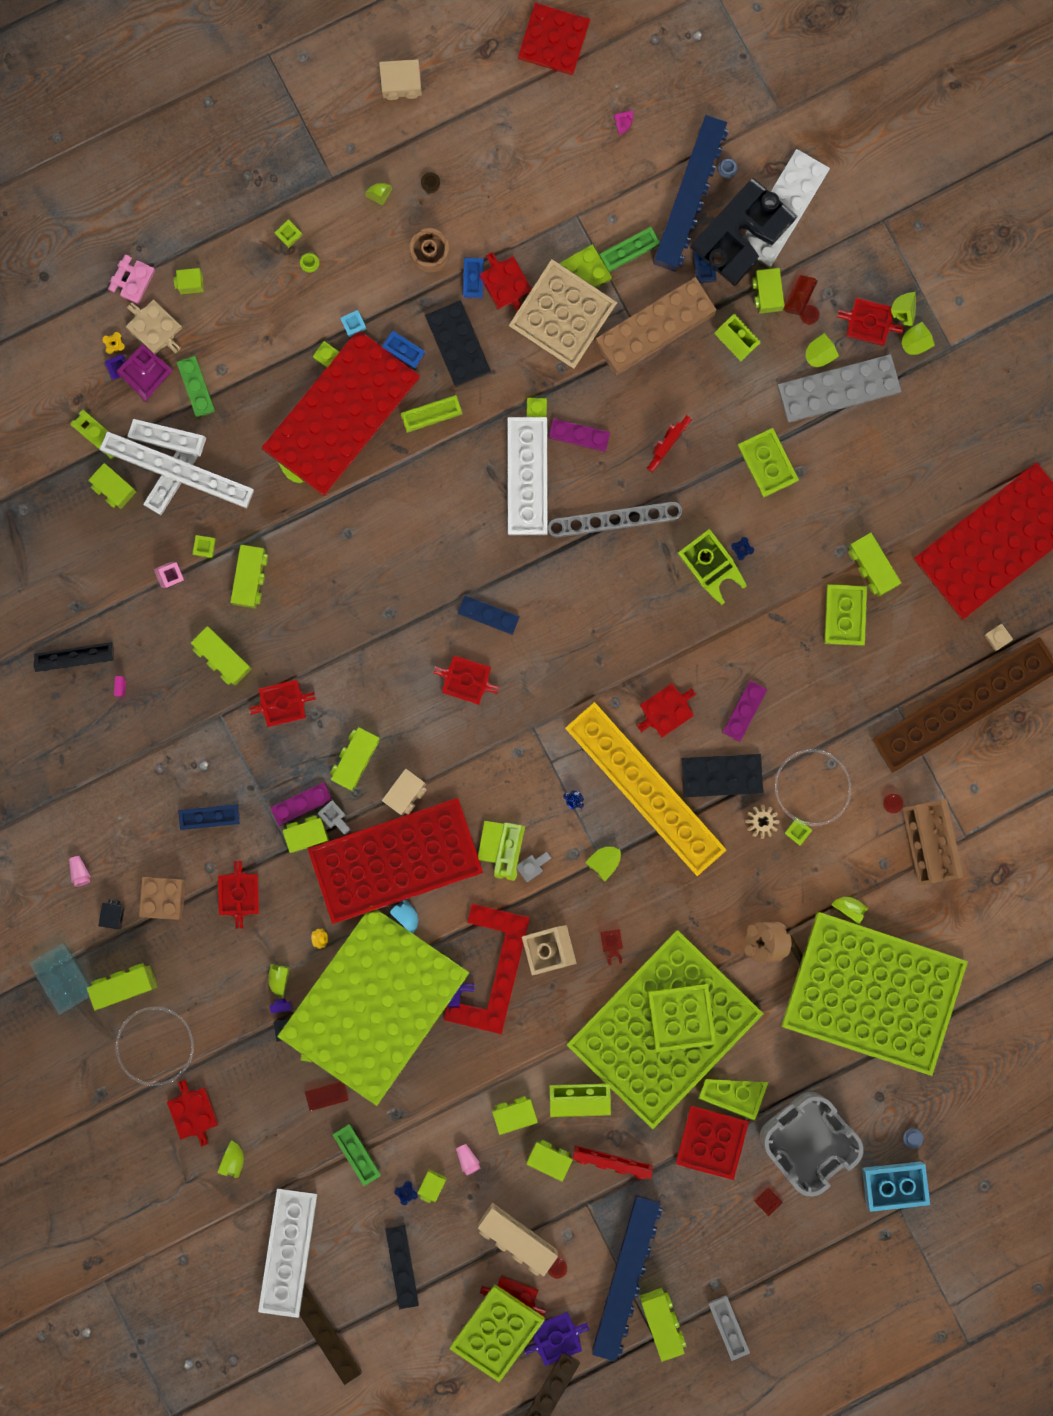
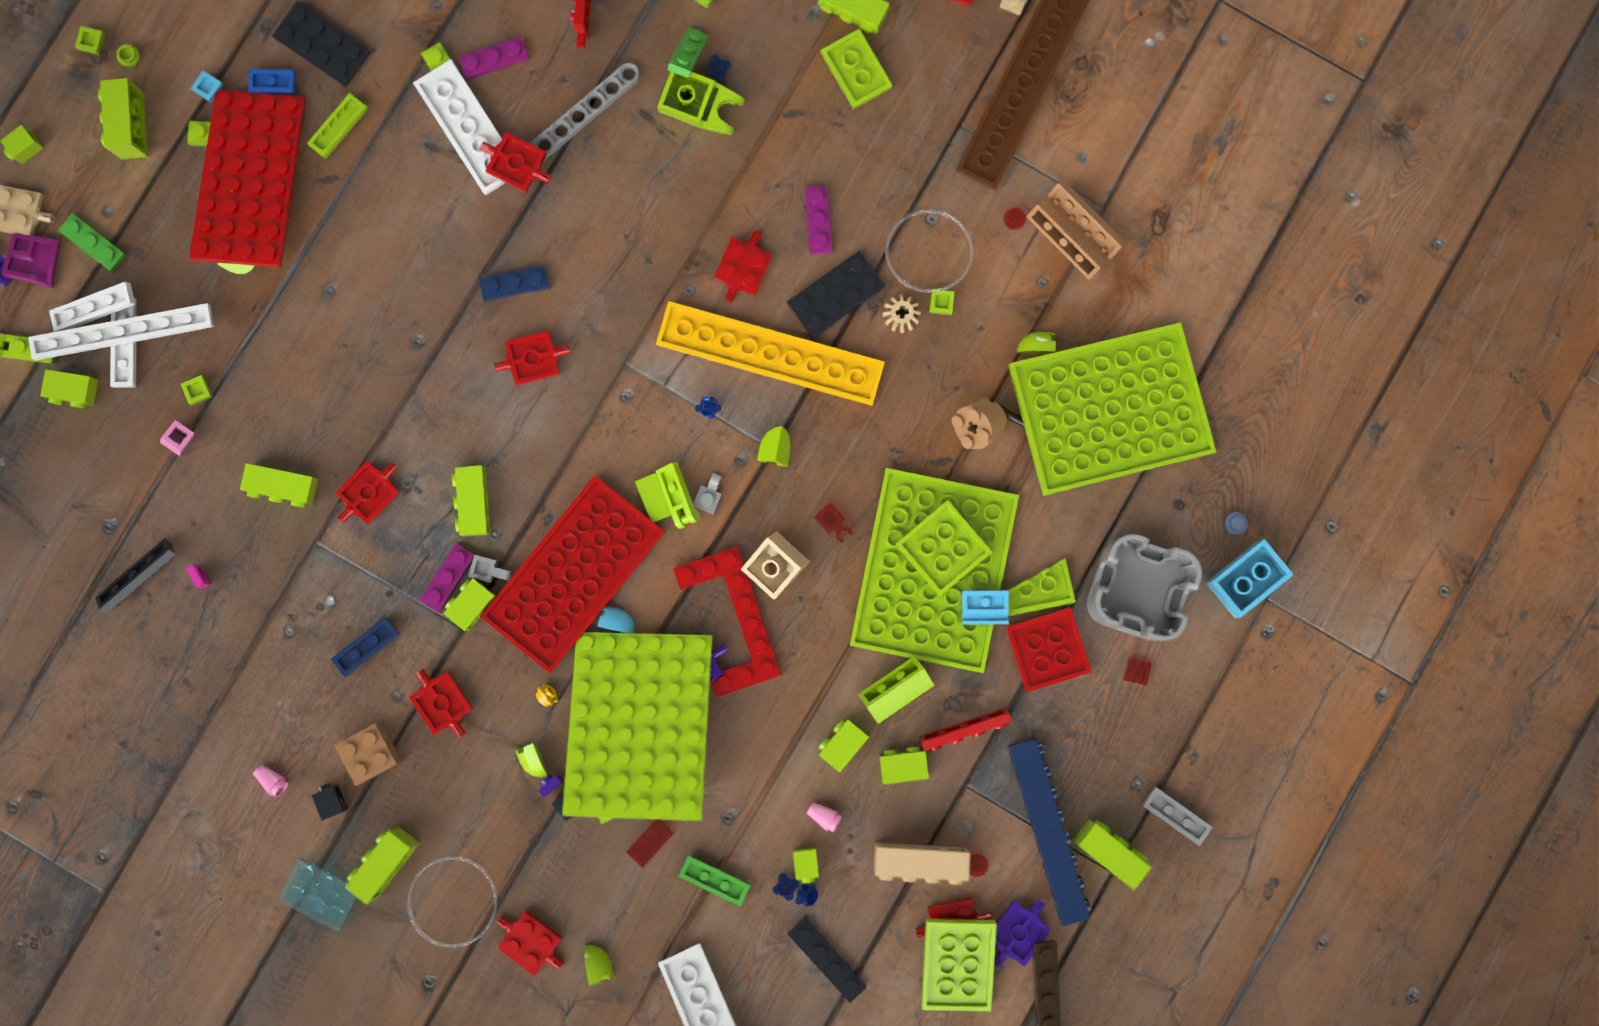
camera: 30 degrees left, 0 degrees up
(249, 576) = (258, 391): lime brick -> none
(276, 310) = (123, 118): none -> lime brick
(405, 792) = (539, 502): tan brick -> none
(417, 1209) = (806, 895): none -> clear blue plate
(546, 527) = (515, 162): none -> red plate
(684, 1081) = (985, 607): none -> medium azure plate
(726, 525) = (688, 52): none -> bright green plate

